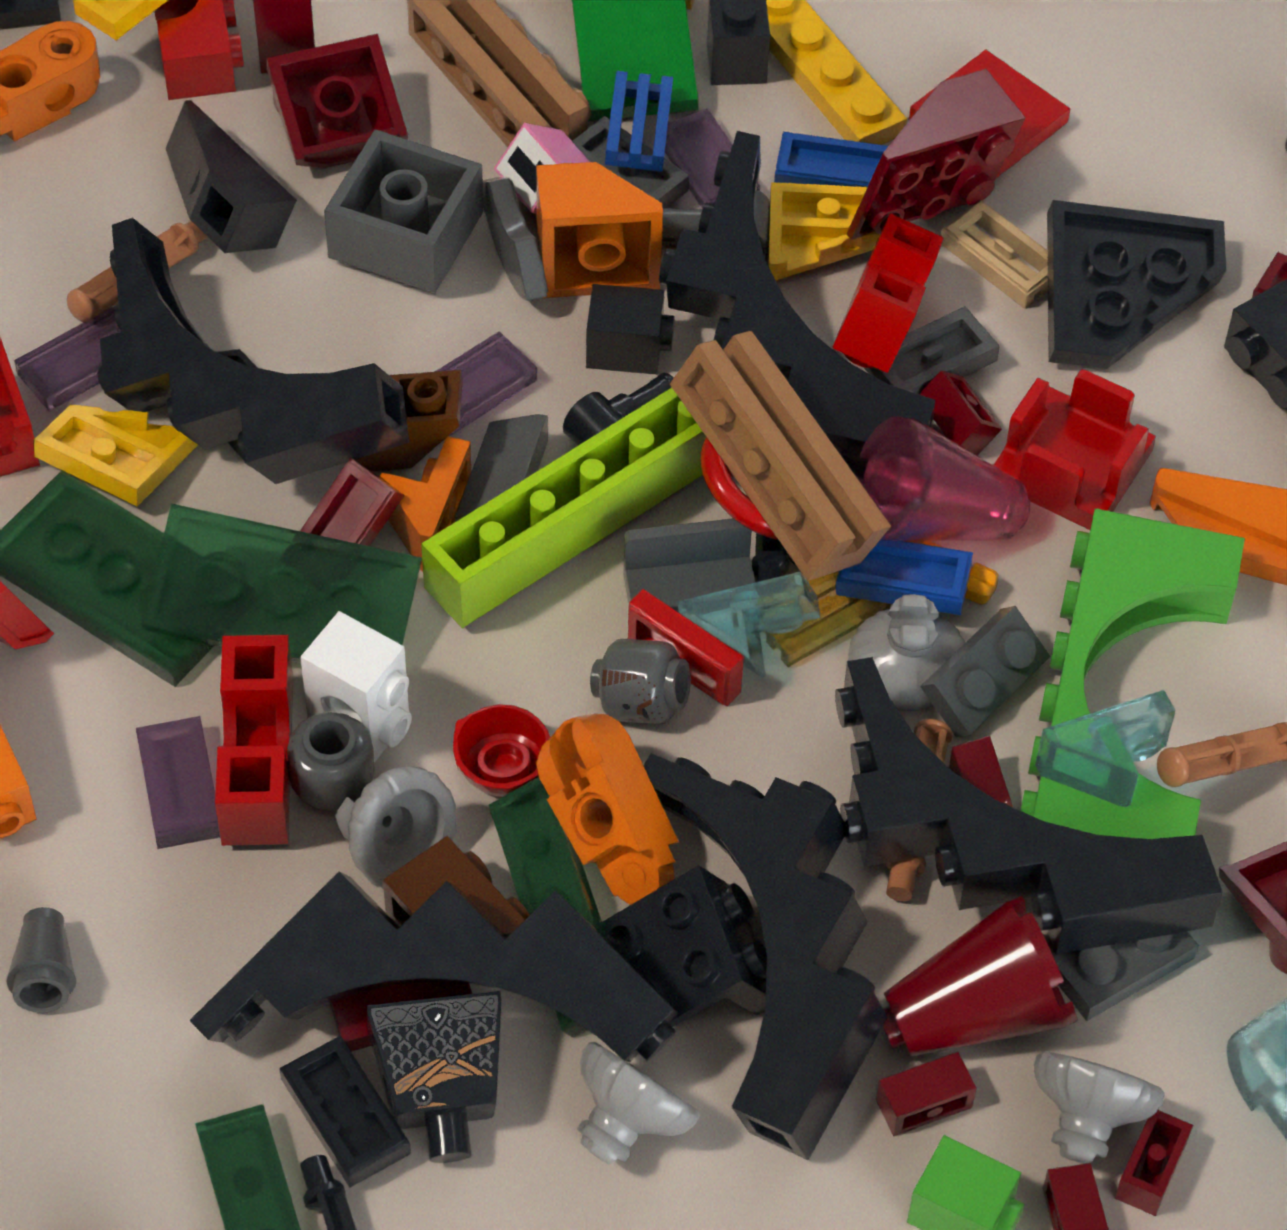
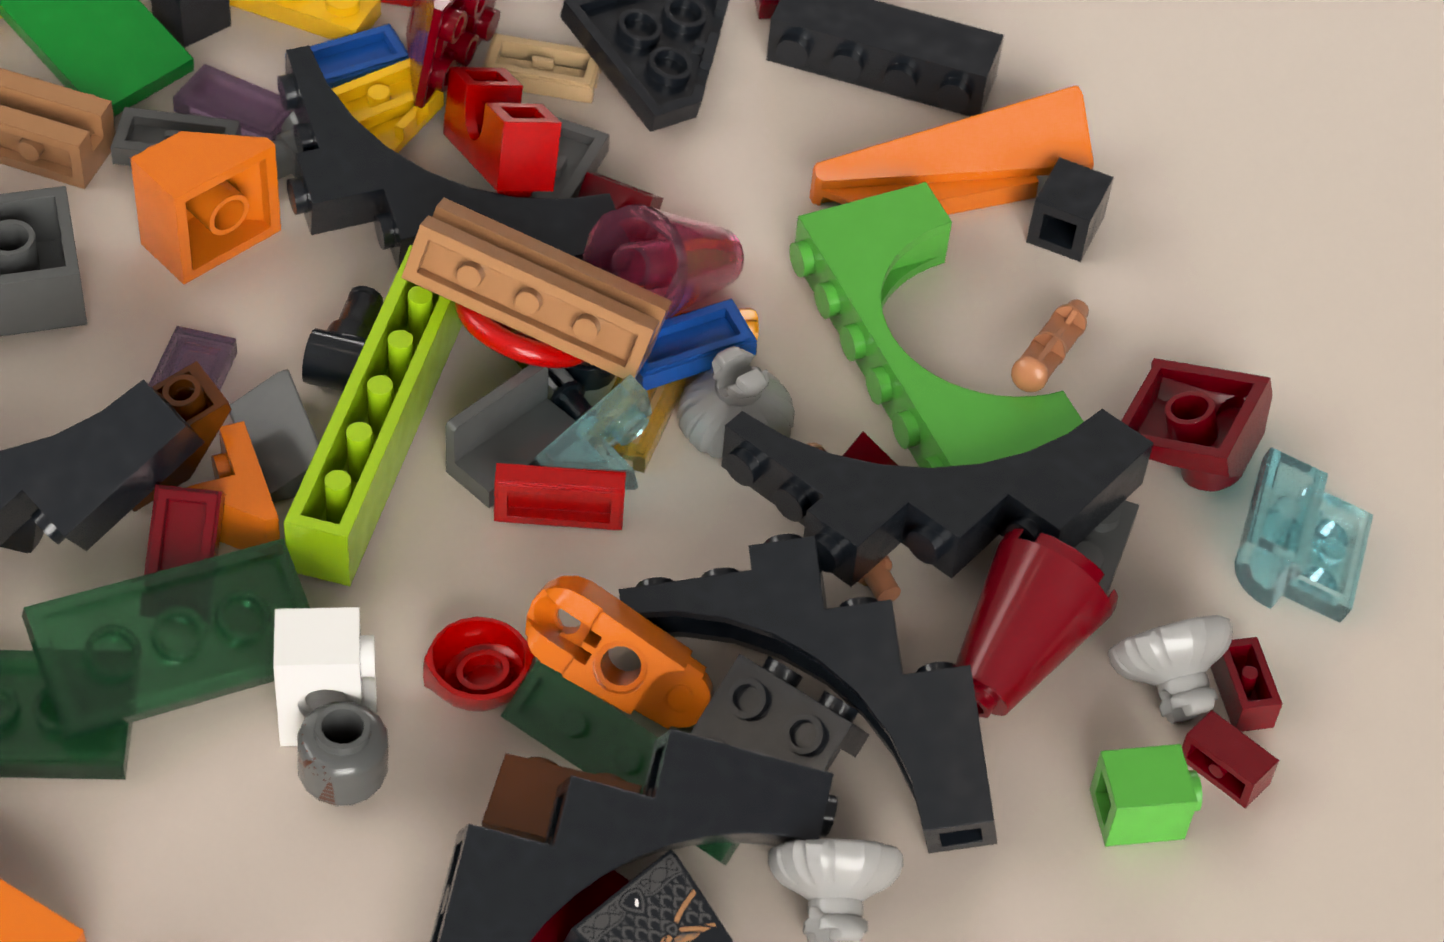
camera: 40 degrees left, 5 degrees down
(178, 782) = (204, 856): clear purple tile -> none
(257, 726) = (281, 805): red arch -> none
(396, 820) = (445, 773): light grey hair -> none
(513, 240) = (128, 246): dark grey tile -> none
(534, 147) = (102, 171): brick -> none
(627, 329) = (290, 269): black brick -> none
(641, 681) = (547, 541): dark grey head -> none
(642, 92) = (164, 63): blue tile -> none
(925, 1093) = (1041, 736): dark red piece -> none
(985, 671) = (810, 387): dark grey plate -> none
(1076, 447) = (734, 181): red panel -> none
(1099, 748) = (976, 387): clear light blue slope -> none

